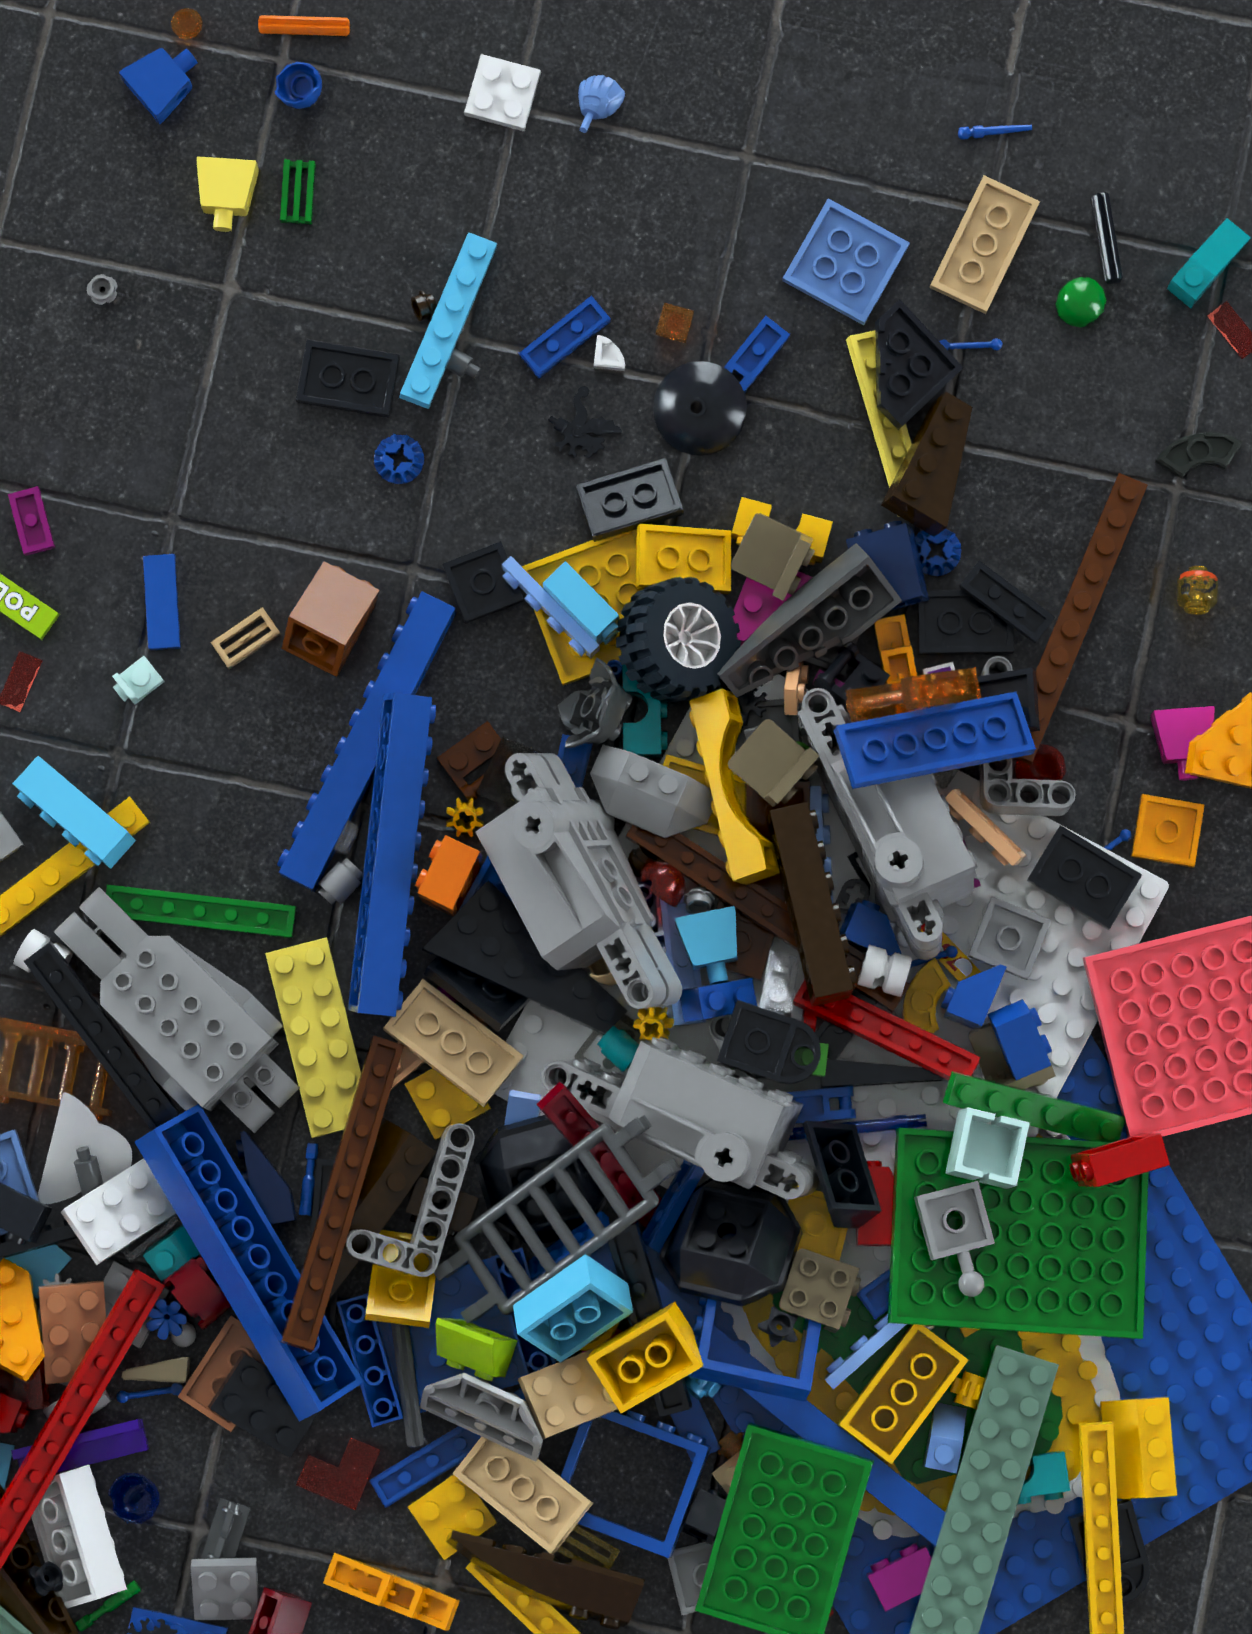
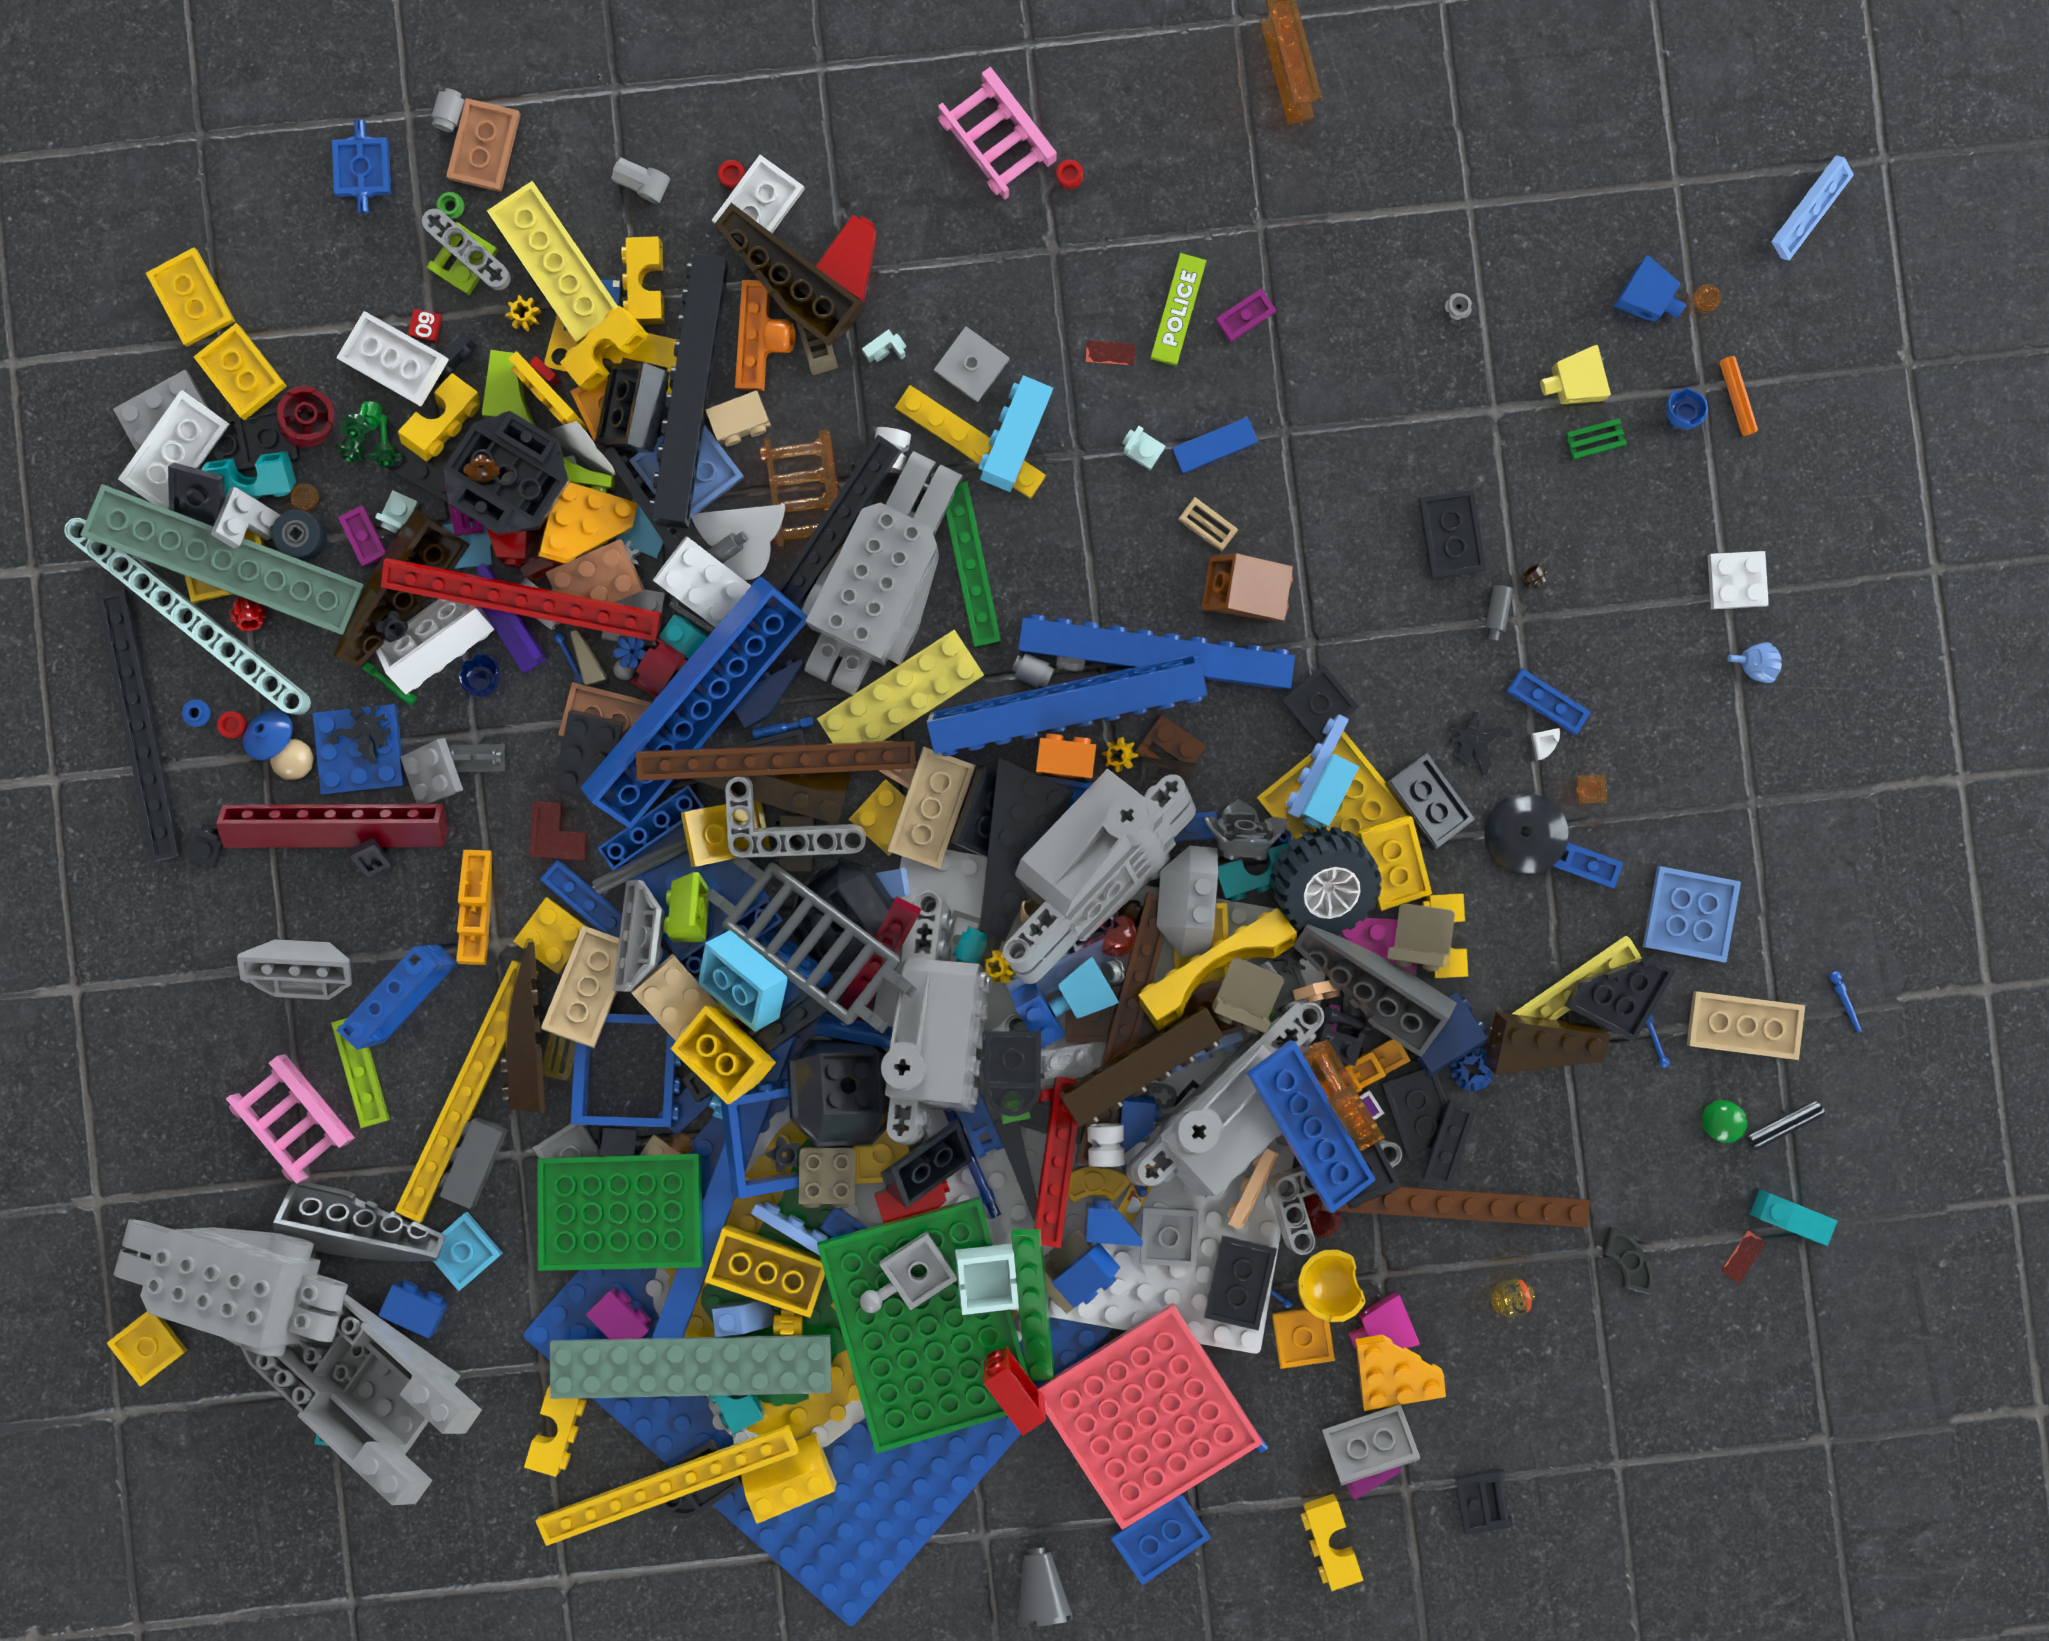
camera: 65 degrees right, 5 degrees up
(405, 471) = (1390, 608): blue gear -> none
(448, 320) = (1529, 600): medium azure plate -> none
(1119, 781) = (1330, 1286): none -> yellow cylinder

